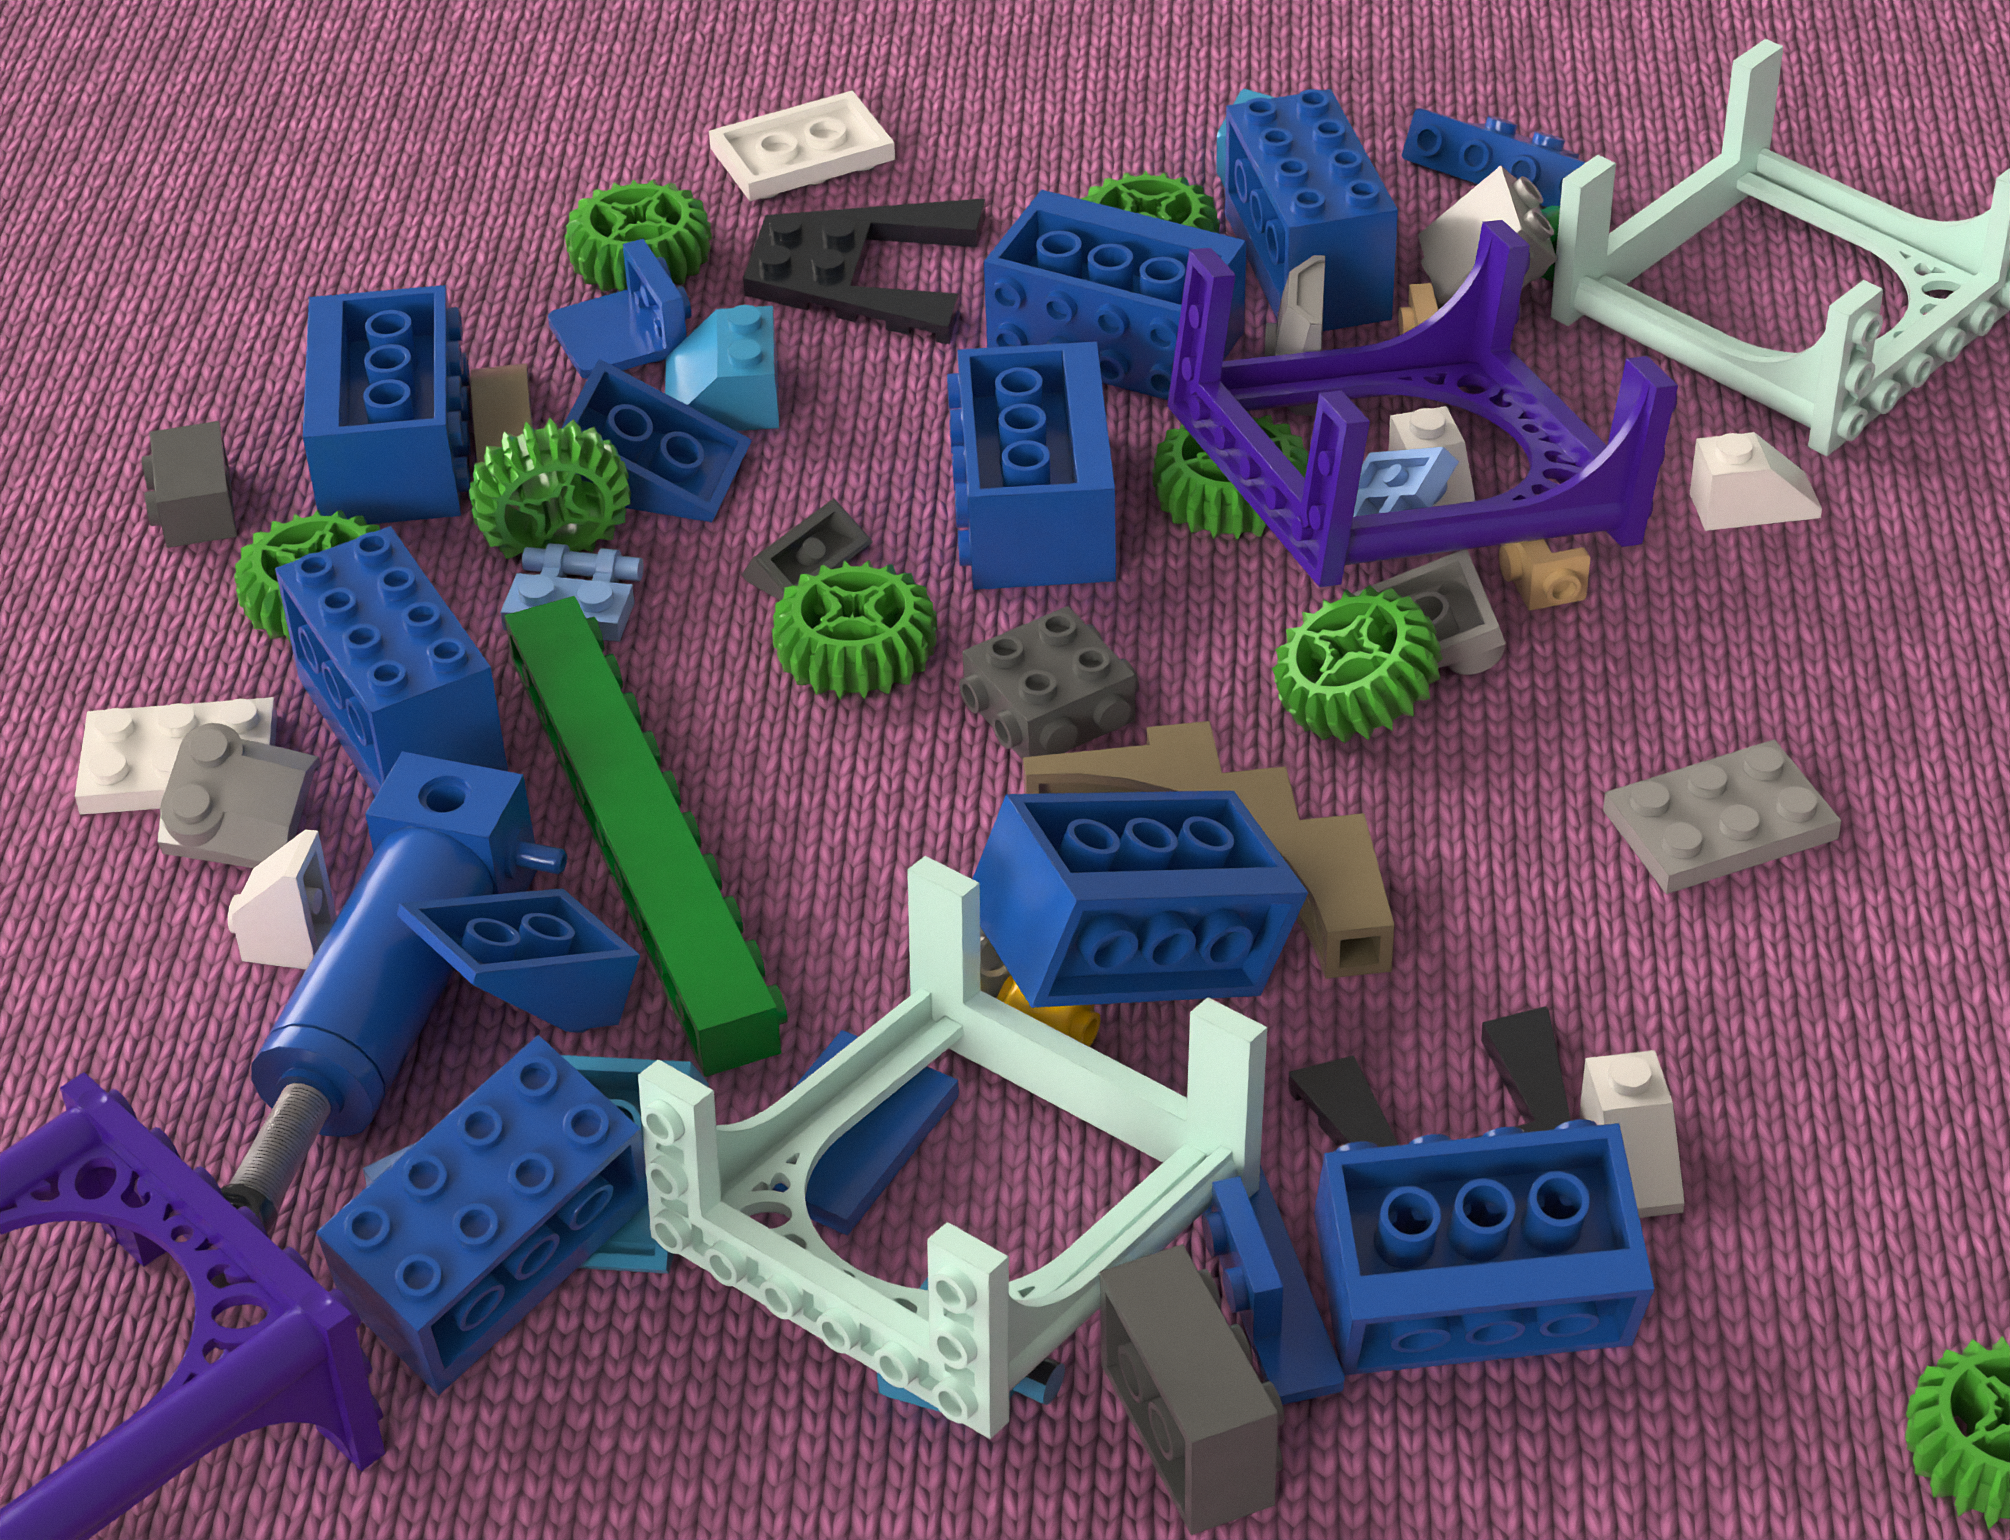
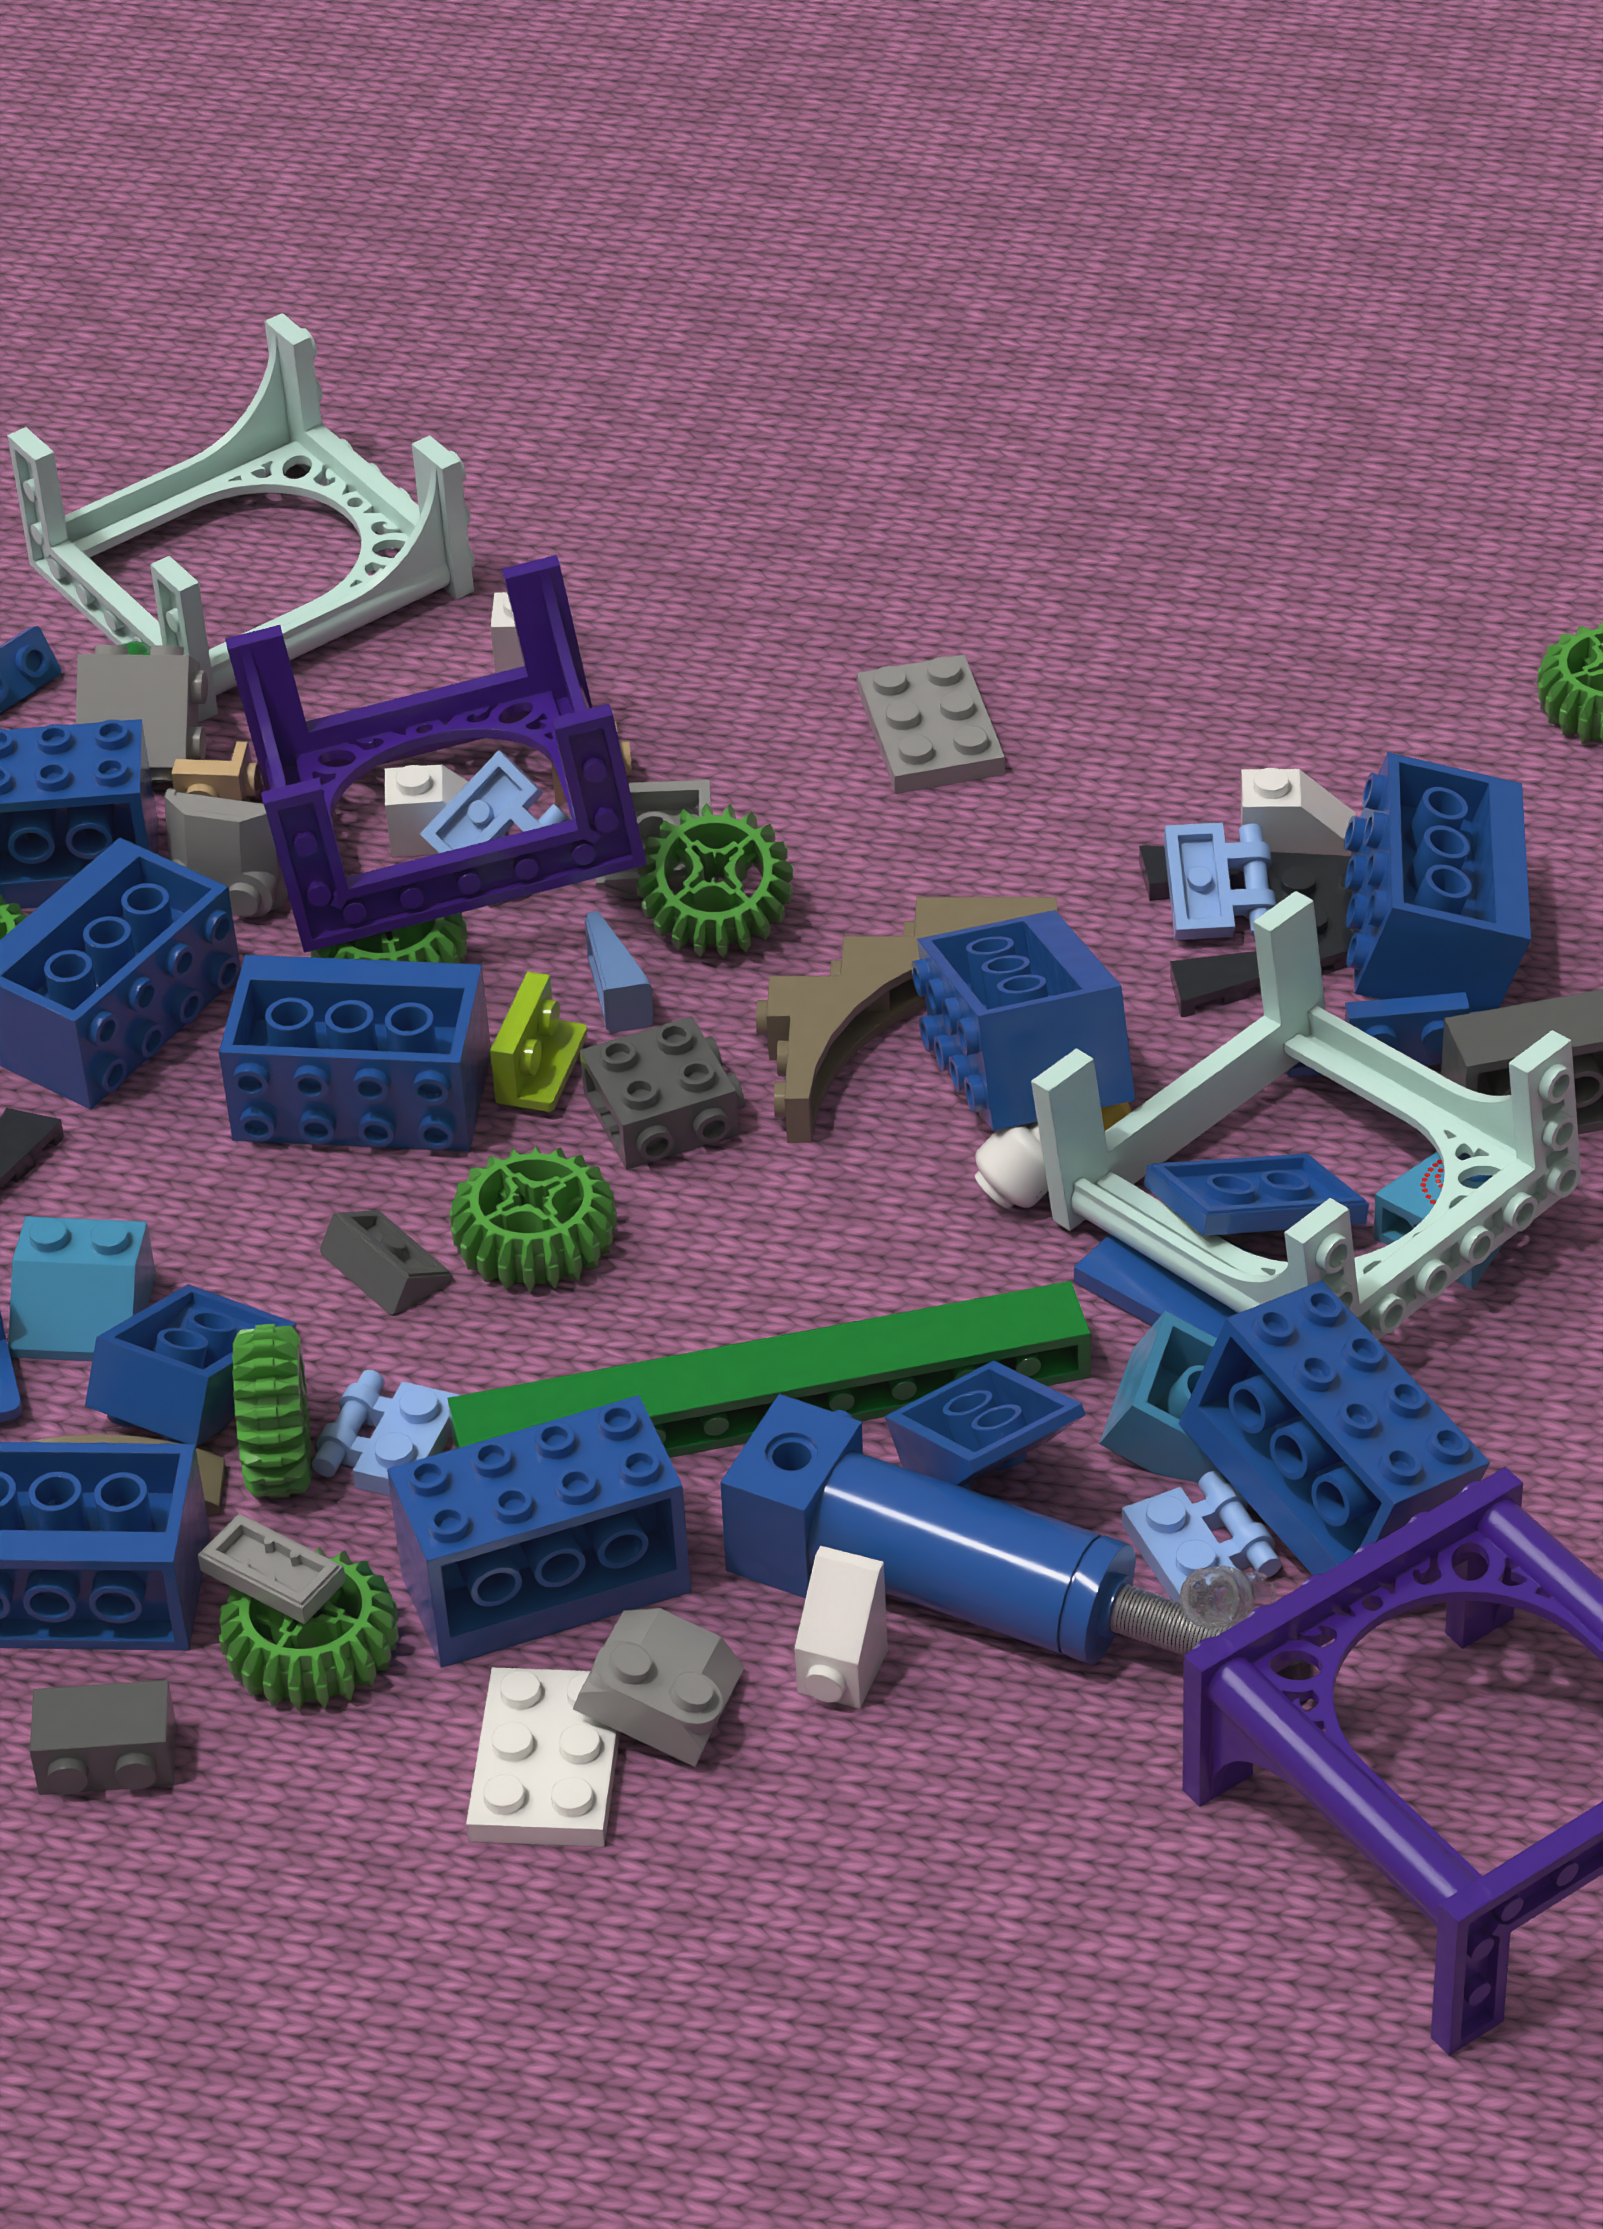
camera: 80 degrees left, 0 degrees up
(269, 1153) = (1224, 1595): none -> clear pin
(334, 511) = (271, 1568): none -> light grey plate
(940, 1146) = (1250, 1192): none -> blue tile
(1095, 576) = (534, 1048): none -> lime bracket
(1204, 631) = (618, 979): none -> medium blue slope
(1481, 1055) = (1200, 880): none -> light blue plate

